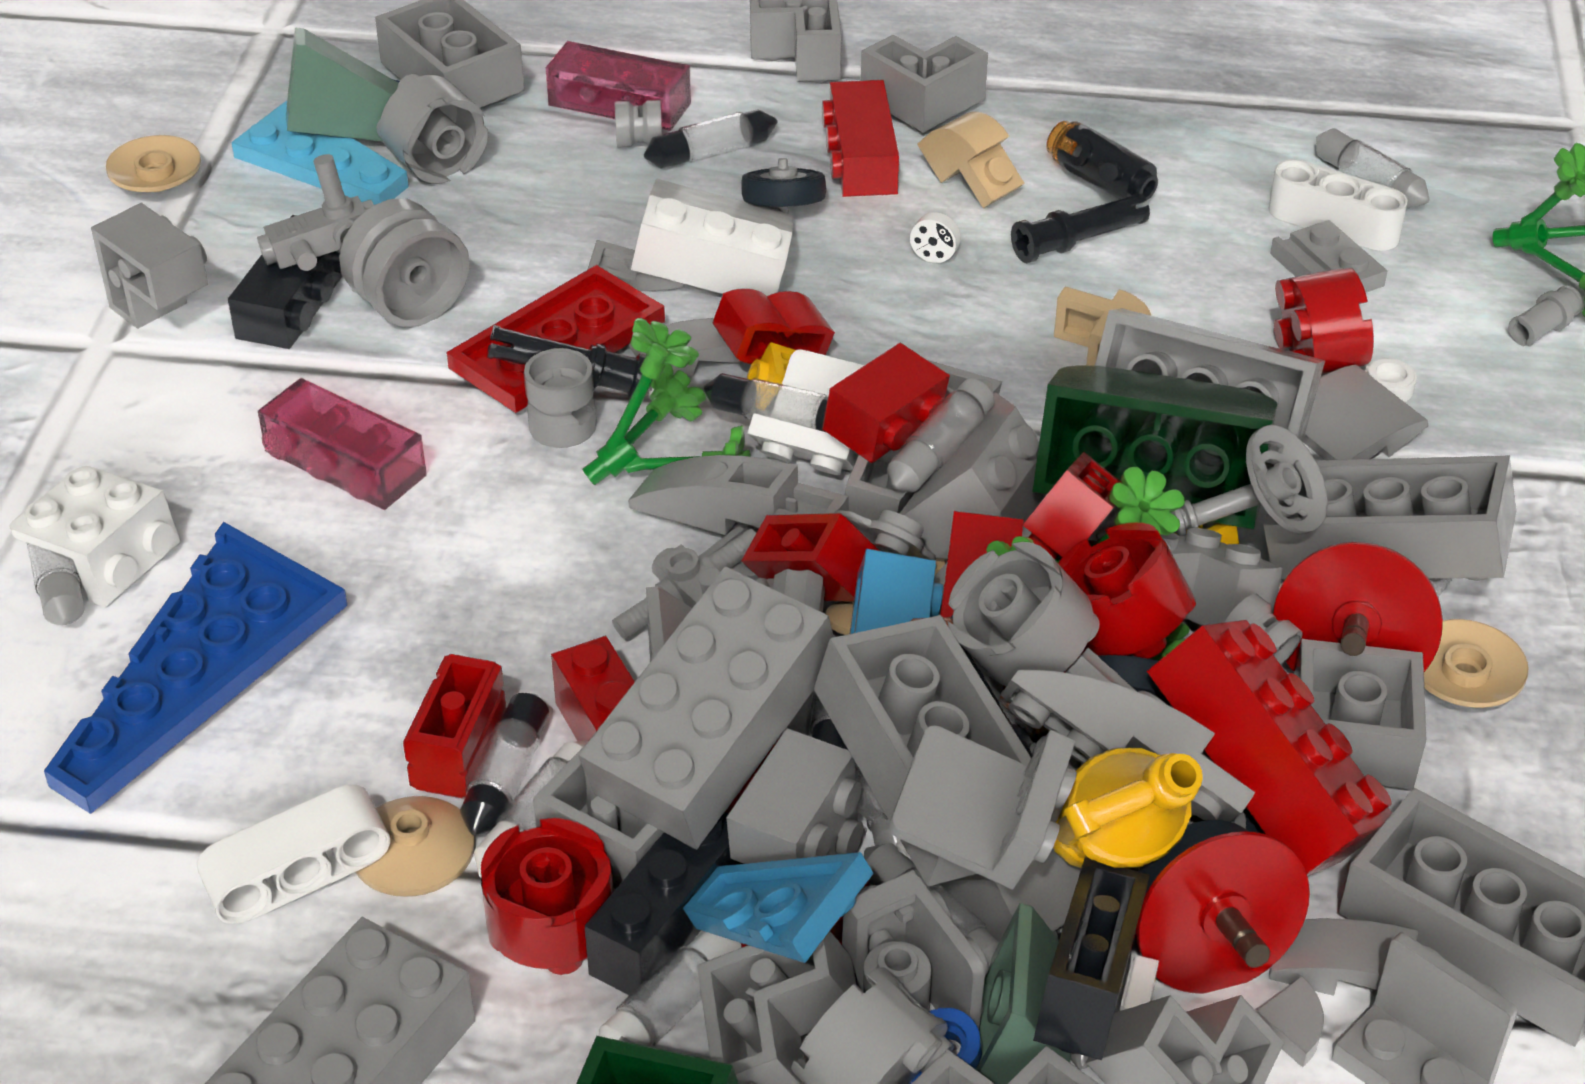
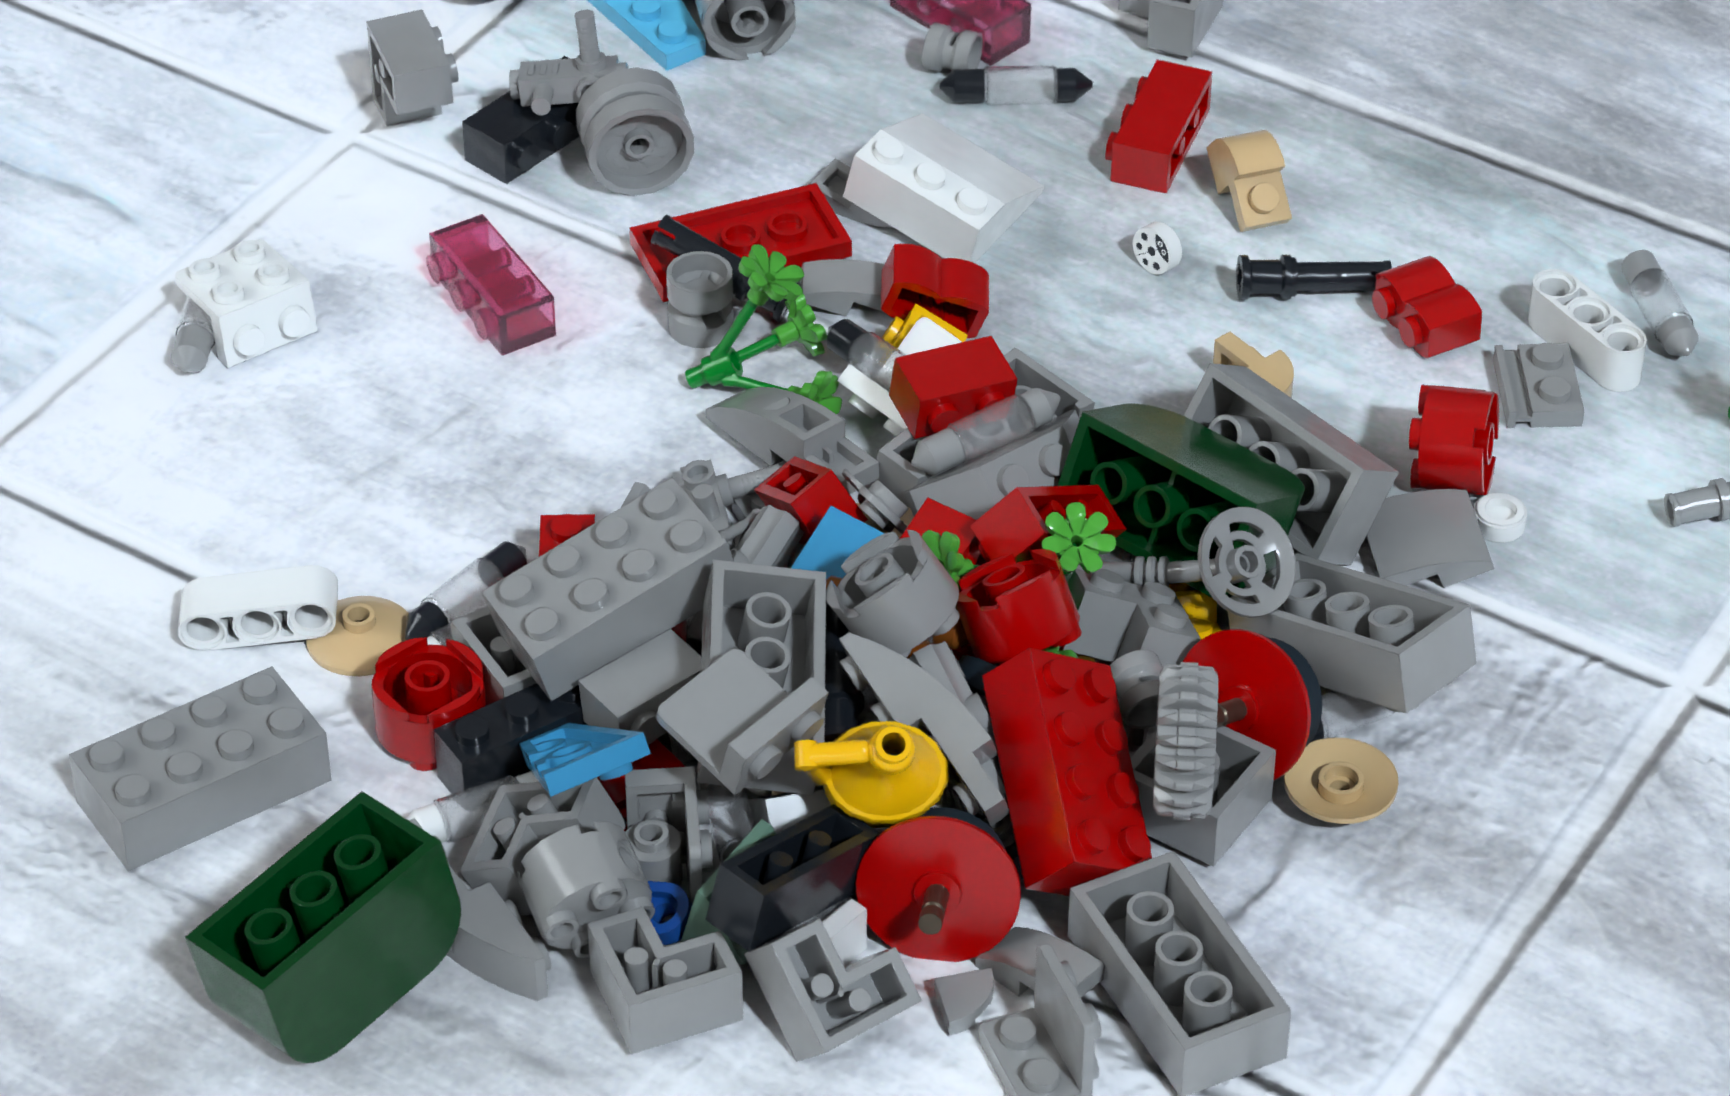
camera: 25 degrees right, 0 degrees up
(194, 657) = (281, 425): blue wing -> none
(454, 724) = (435, 546): red brick -> none
(783, 186) = (1044, 155): black wheel -> none
(927, 84) = (1262, 88): light grey brick -> none
(1101, 160) = (1380, 216): black piece -> none
(1197, 222) = (1427, 307): none -> red brick
(1379, 671) = (1185, 741): none -> light grey gear

